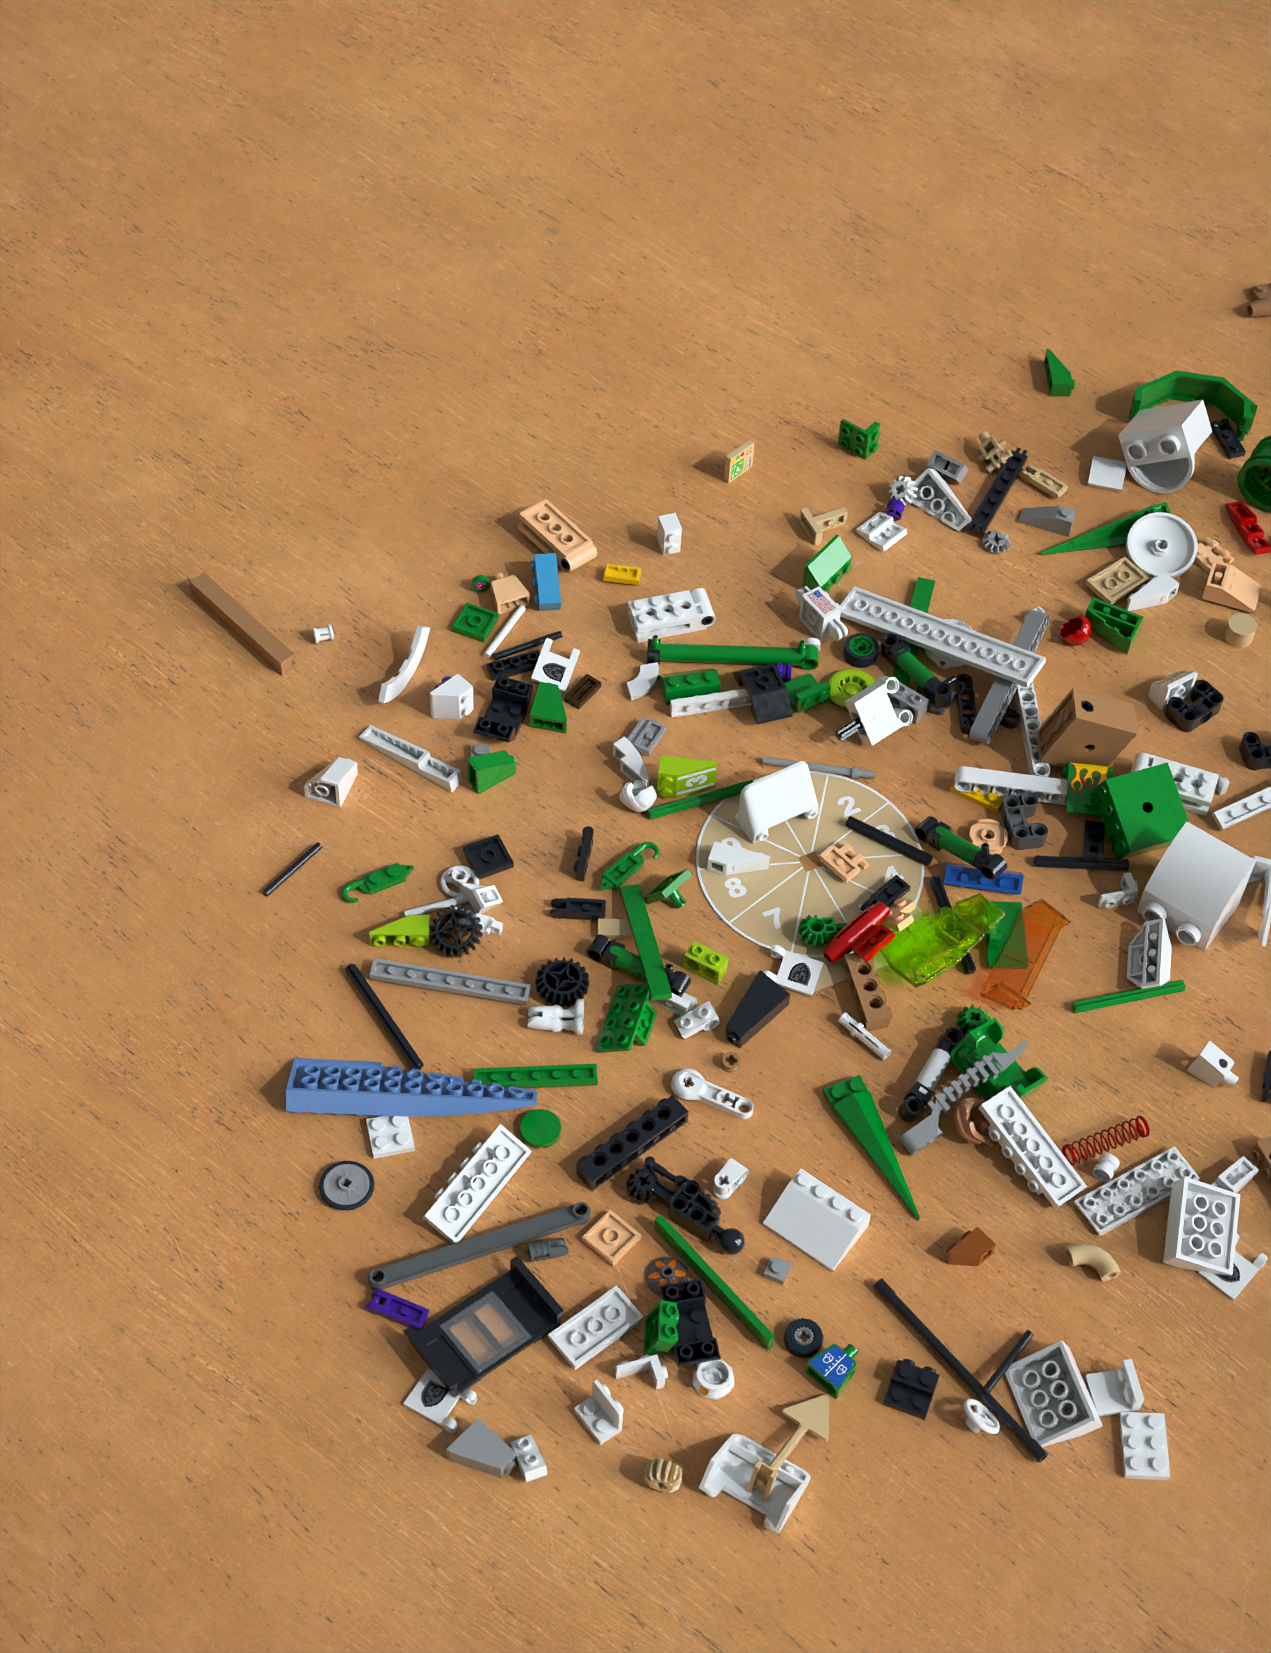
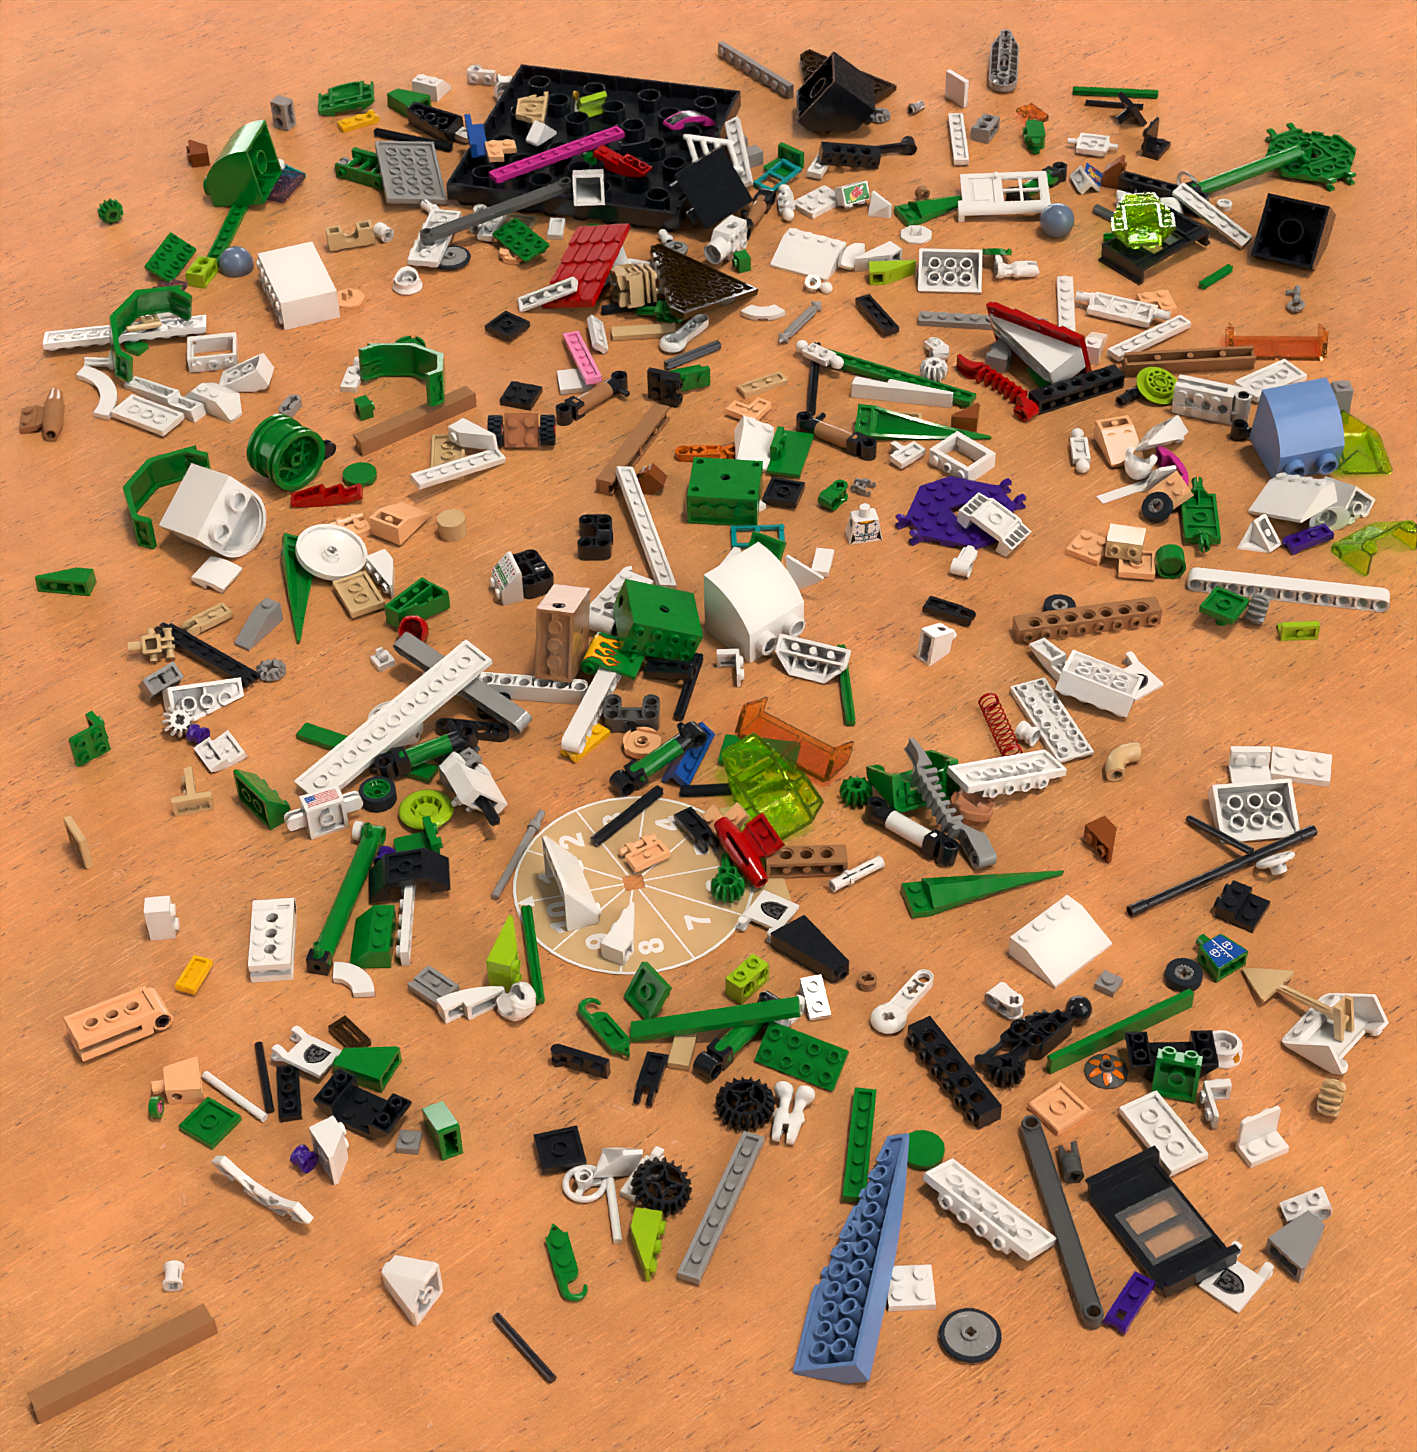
camera: 75 degrees left, 10 degrees down
(384, 1017) = (754, 1275): black axle -> none
(413, 758) = (393, 1207): white slope -> none
(546, 582) = (183, 1040): dark azure wedge -> none

